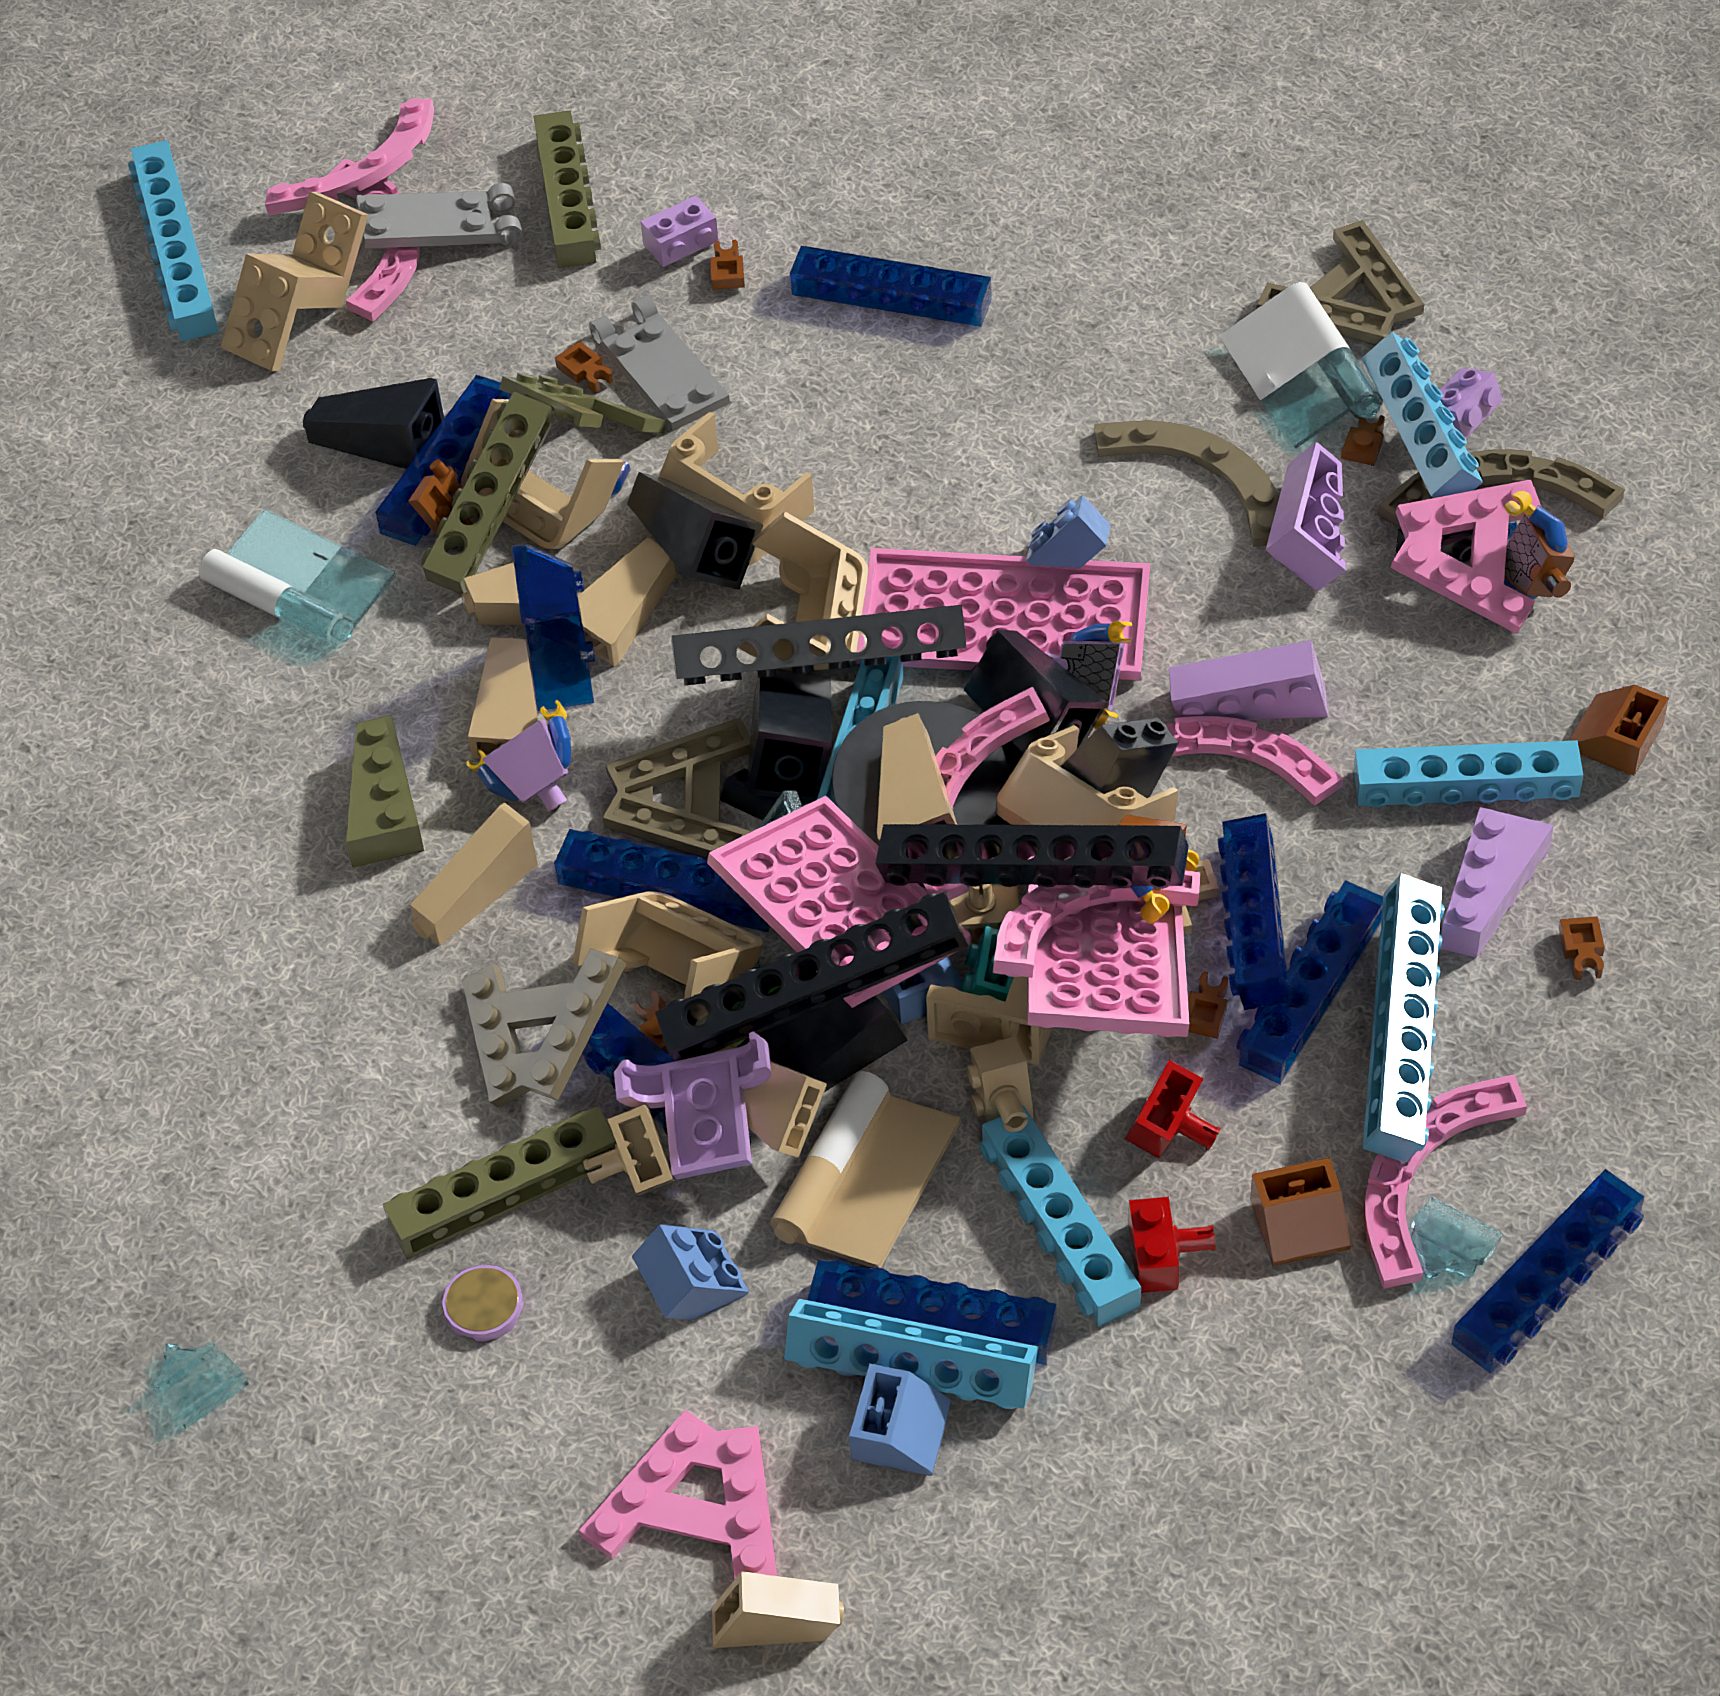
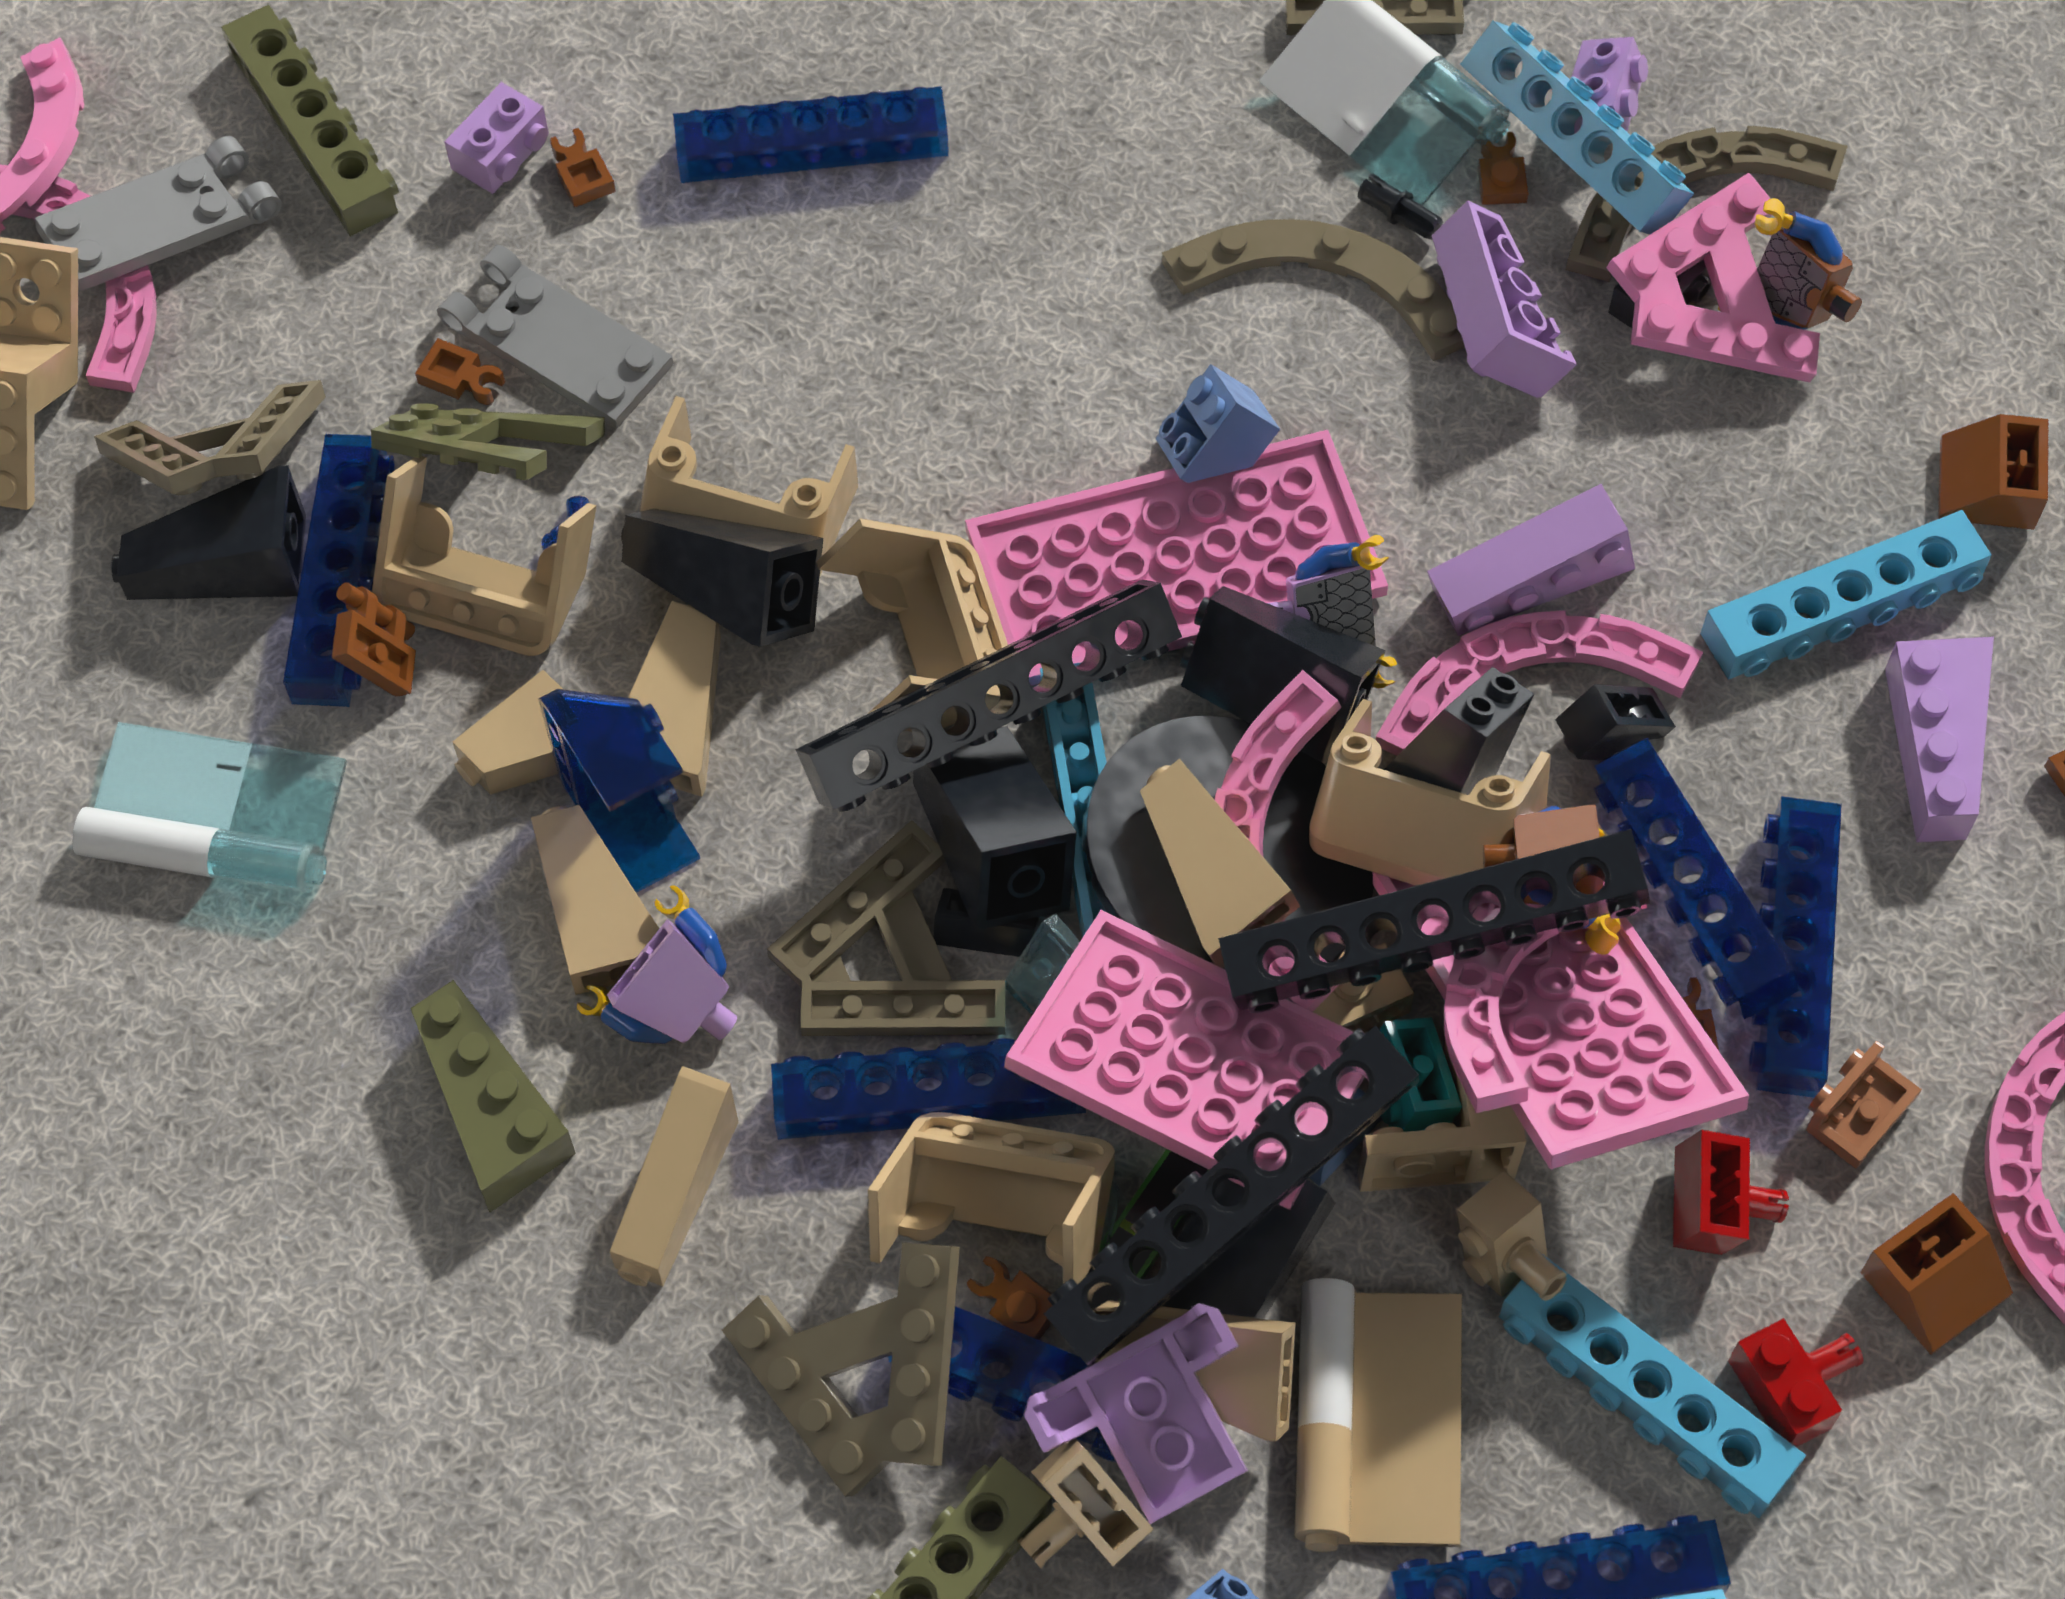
camera: 25 degrees left, 10 degrees up
(411, 363) = (246, 443): none -> dark tan plate
(516, 414) = (452, 486): olive brick -> none
(1251, 794) = (1612, 719): none -> black arch
(1275, 439) = (1399, 206): none -> black axle
(1303, 1092) = (1861, 1106): none -> nougat bracket
(1403, 1019) = (1946, 967): medium azure brick -> none

